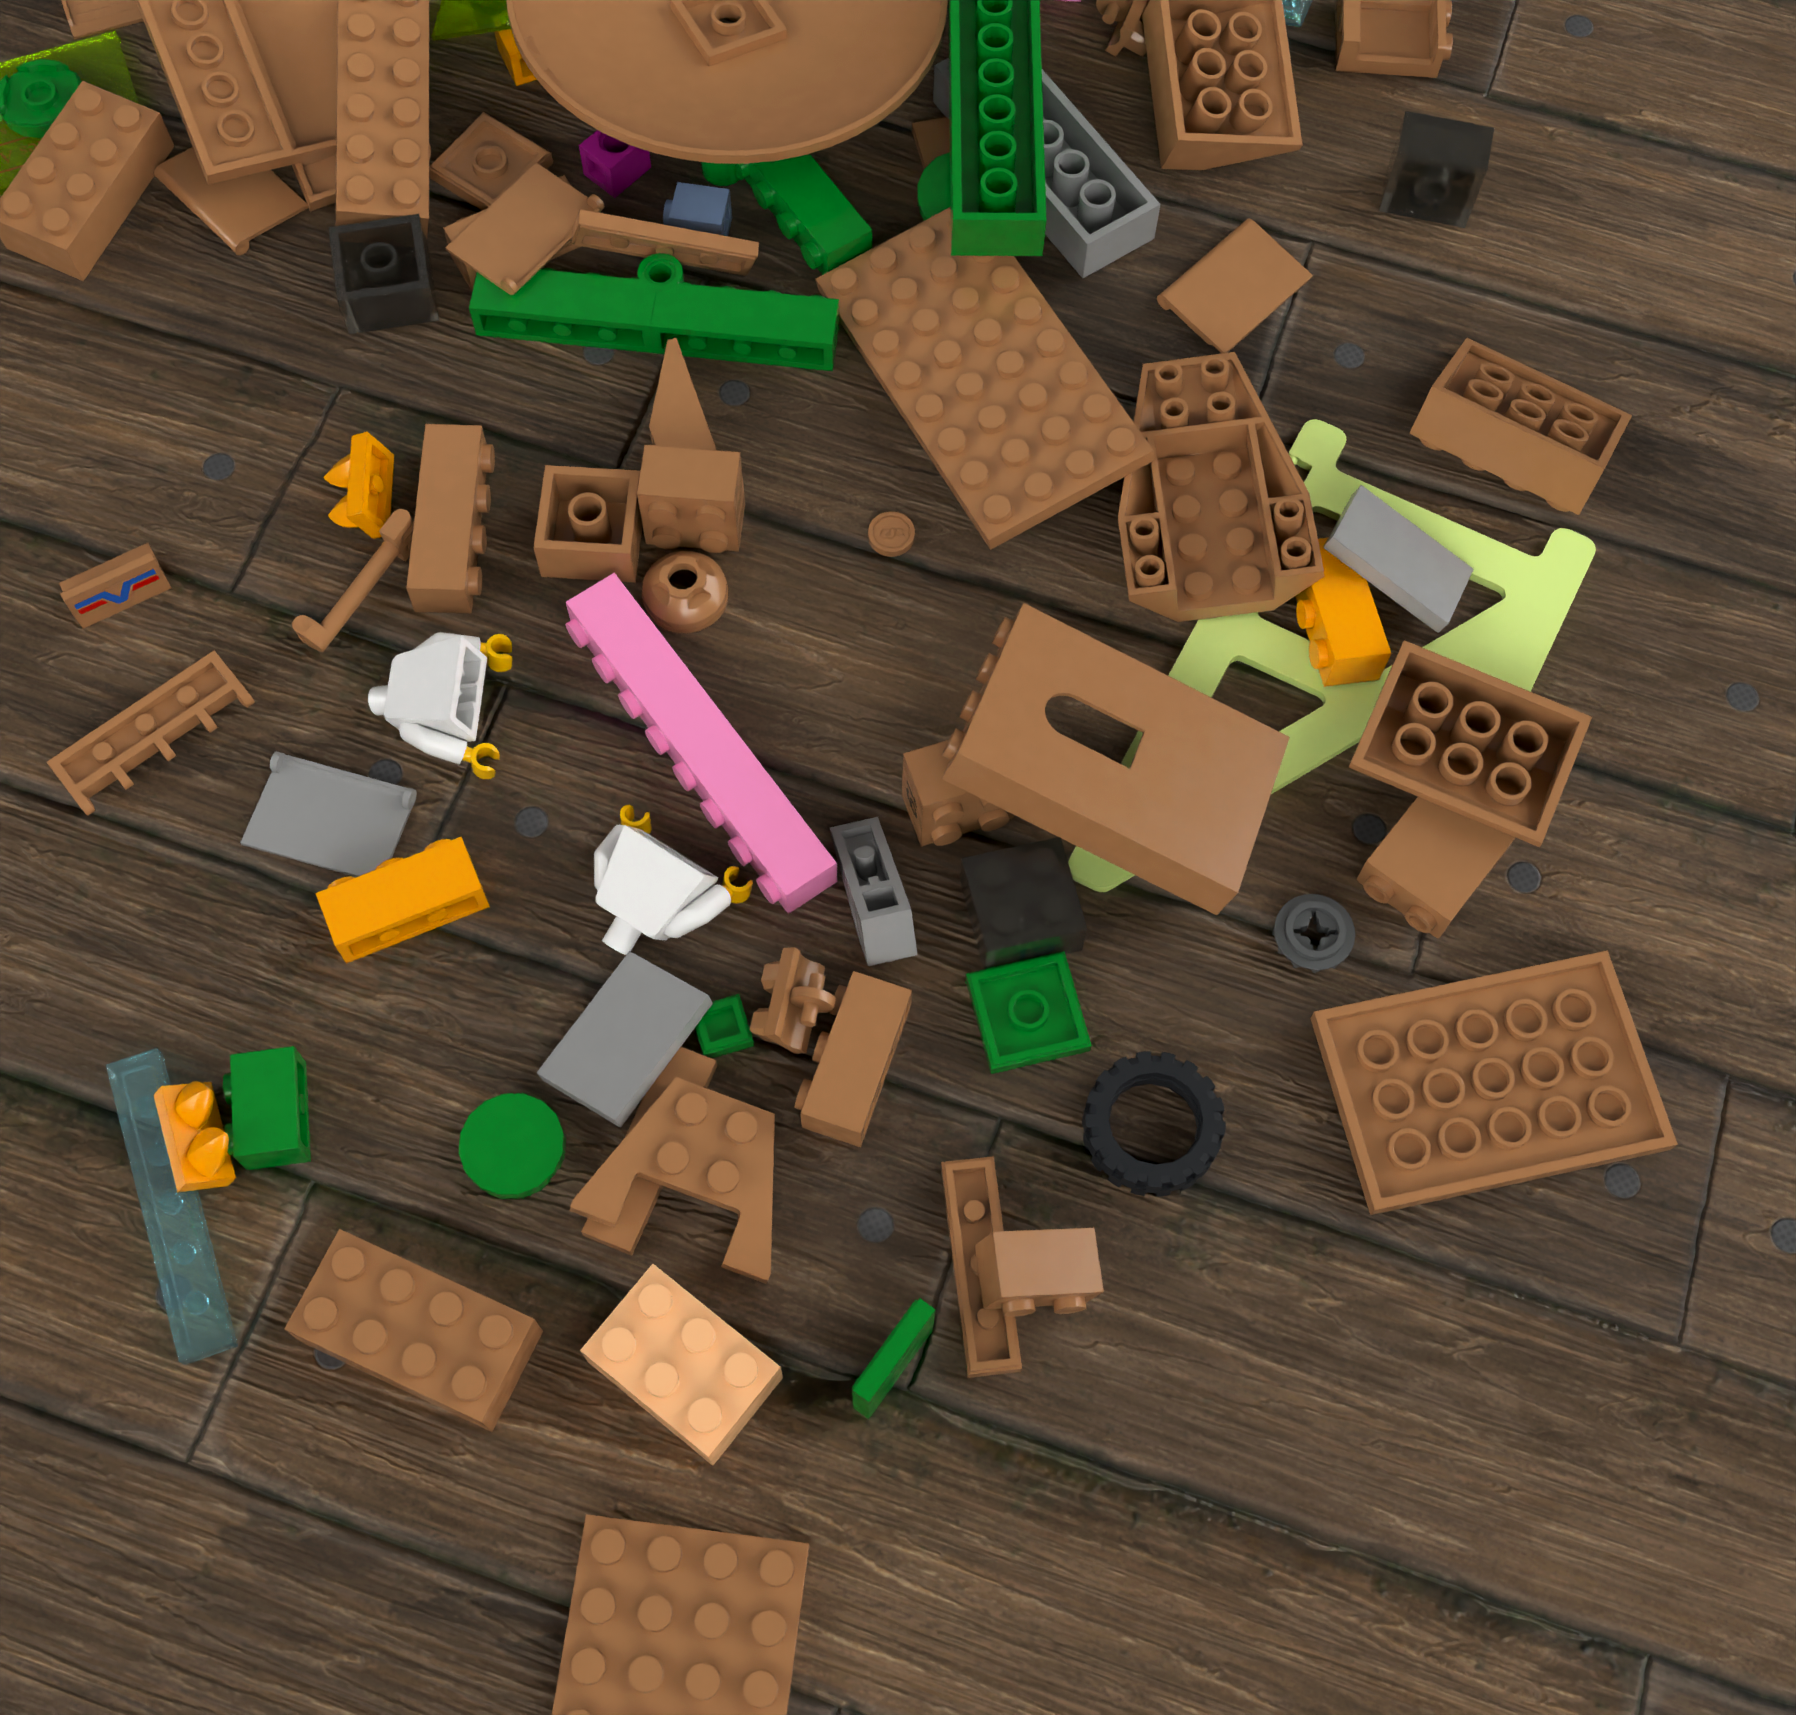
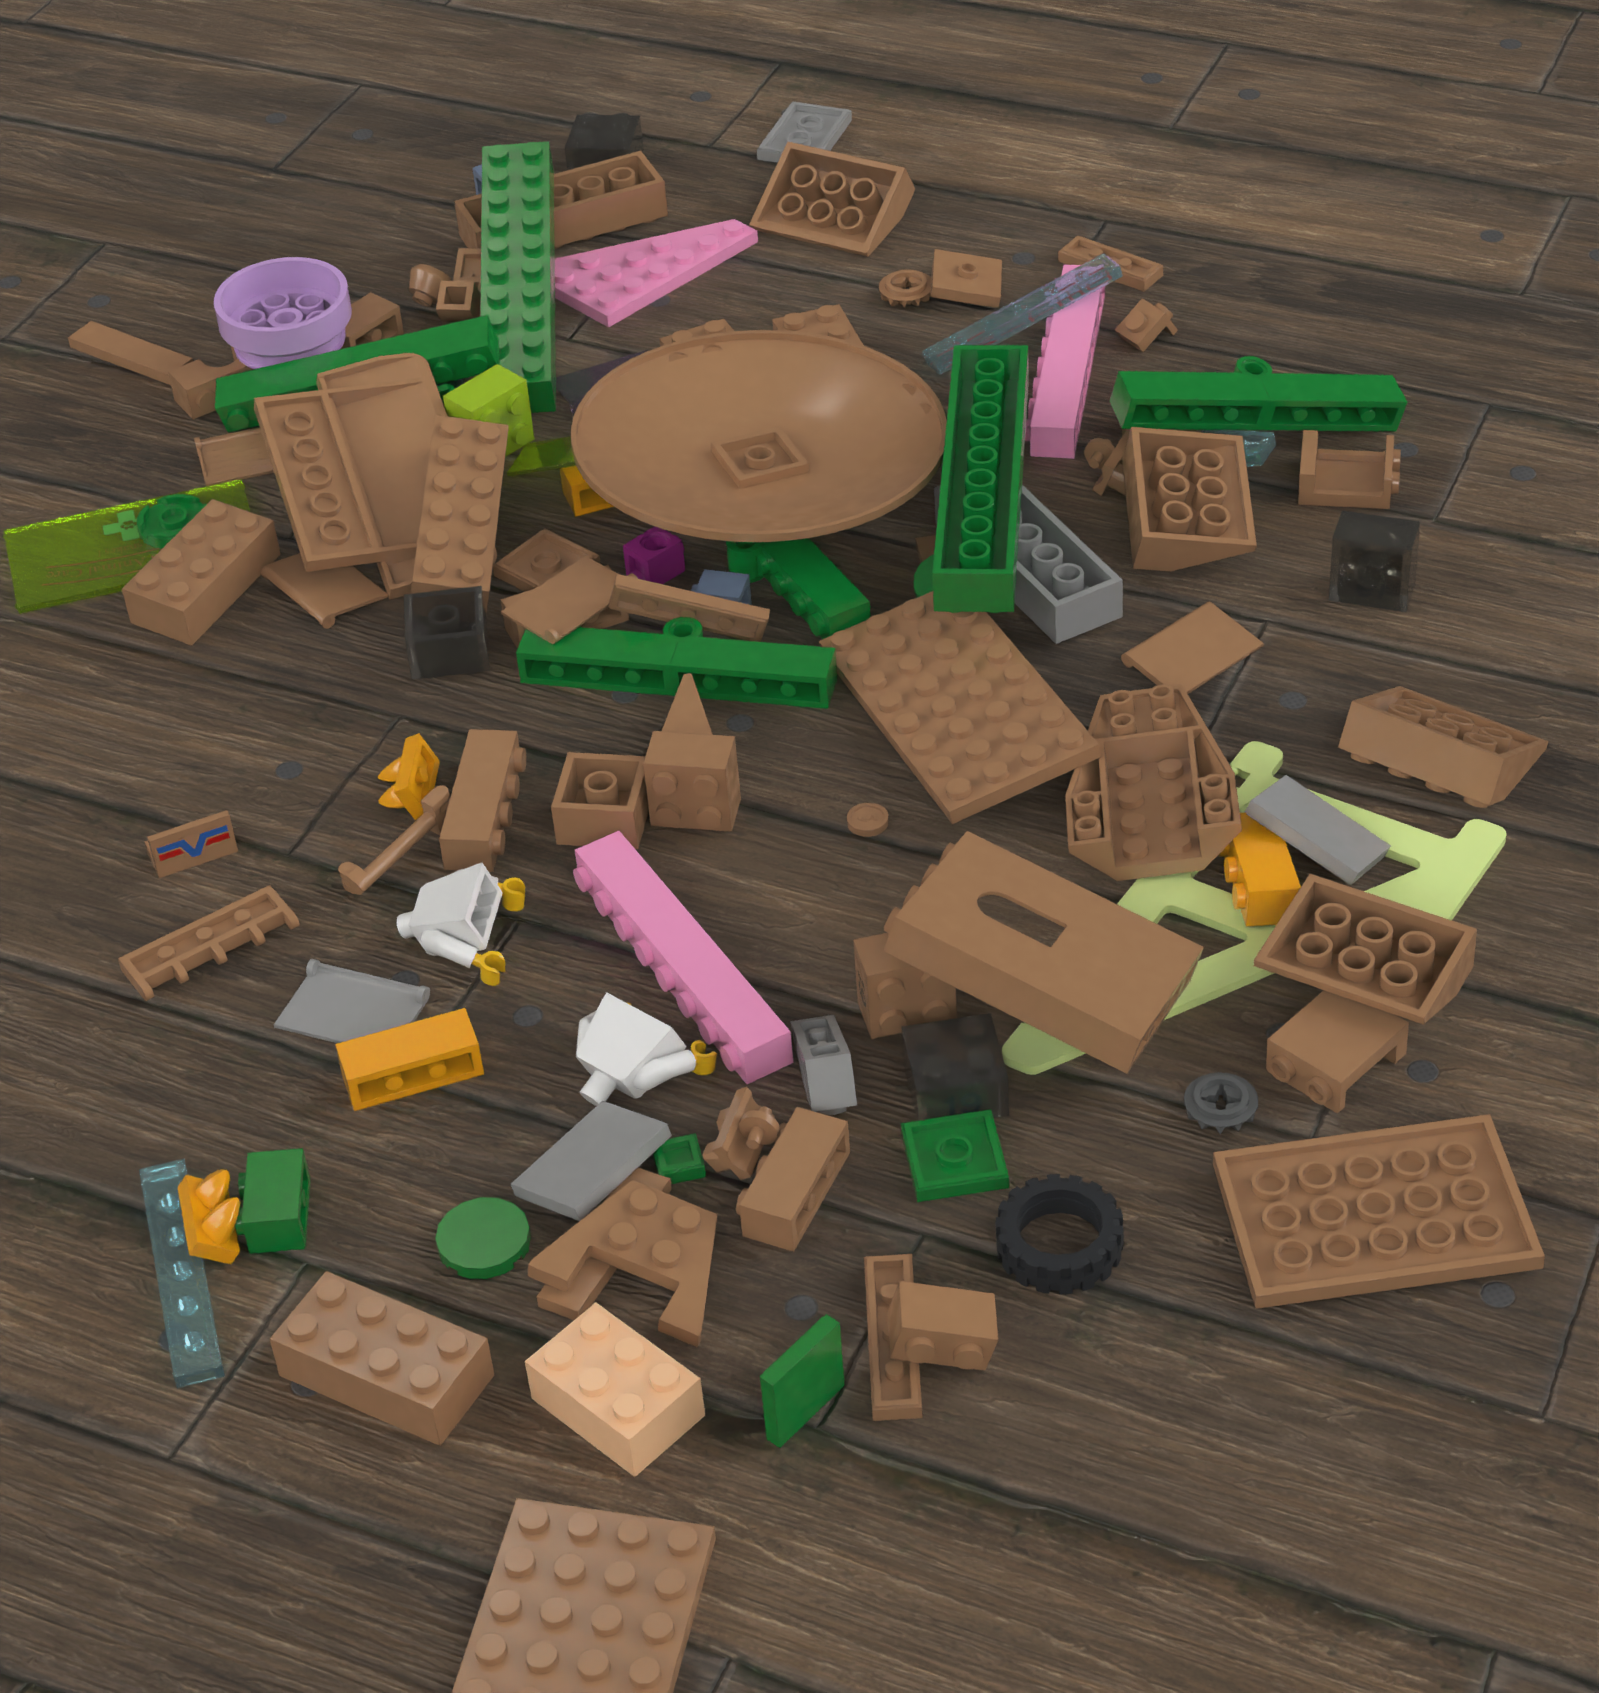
camera: 10 degrees right, 25 degrees down
(688, 608) = (684, 863): medium nougat piece -> none

